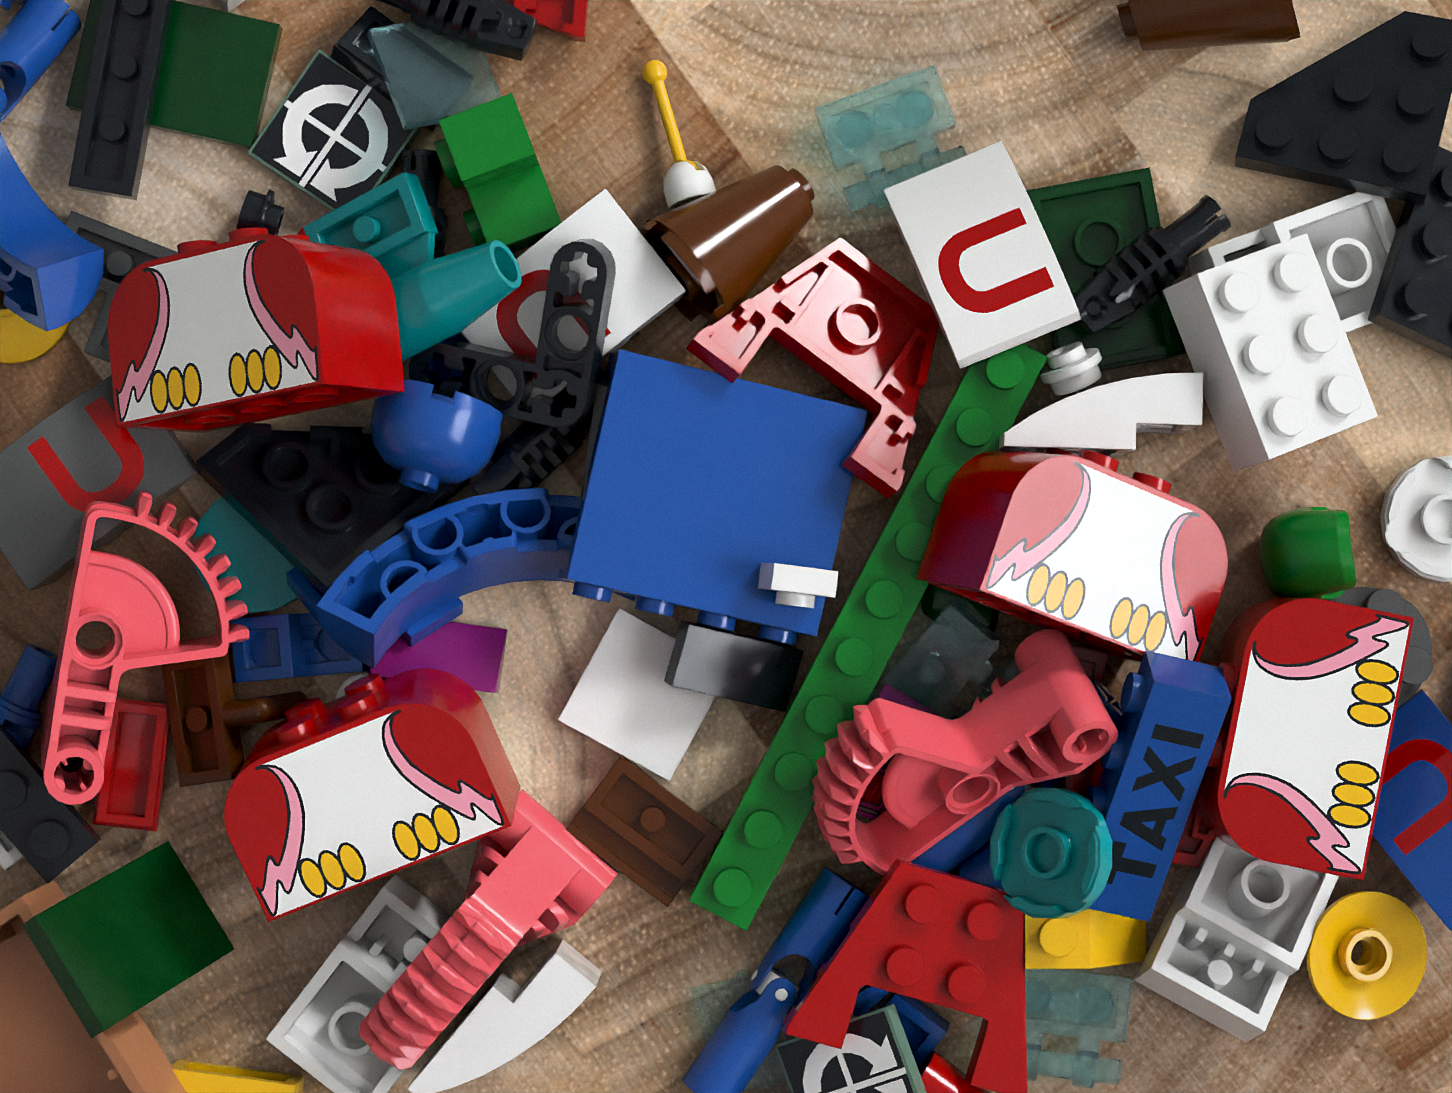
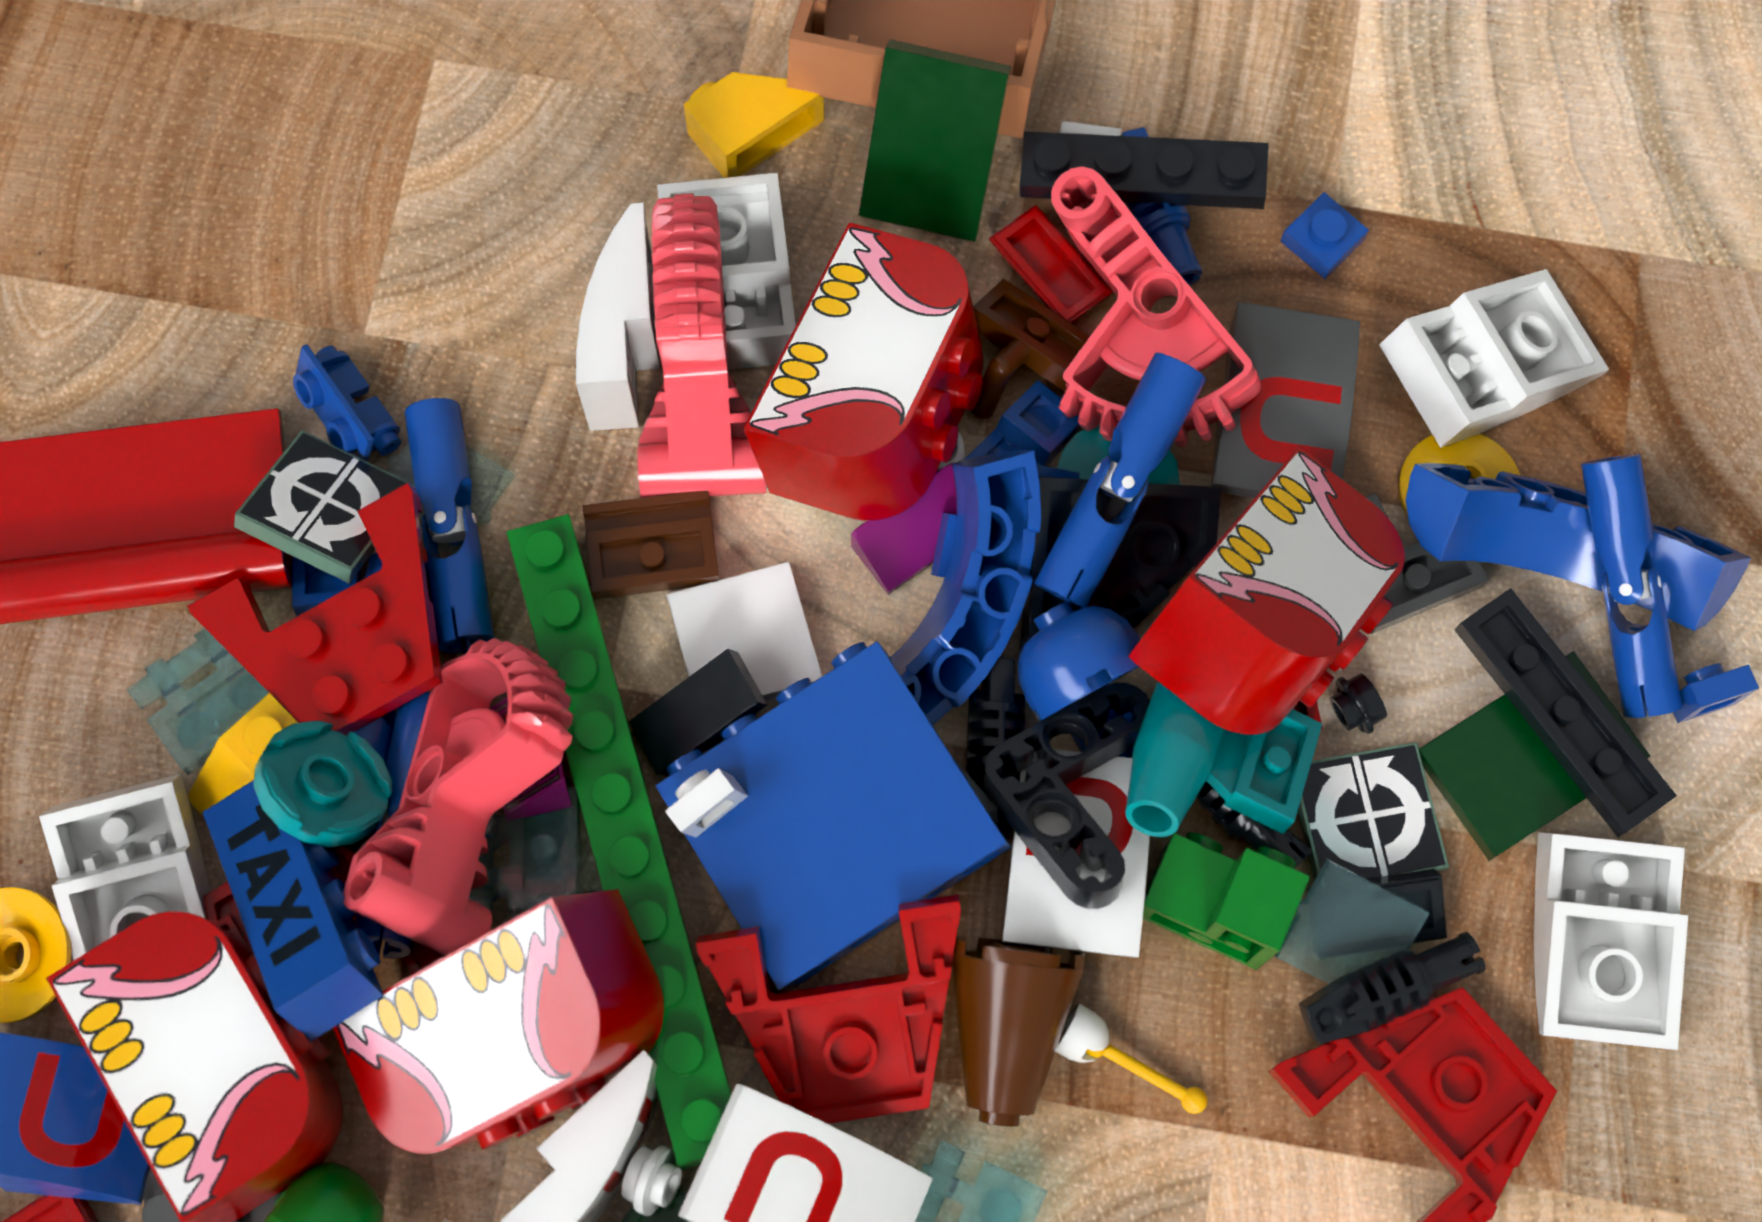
camera: 135 degrees right, 15 degrees down
(245, 533) = (1136, 449): none -> blue piece

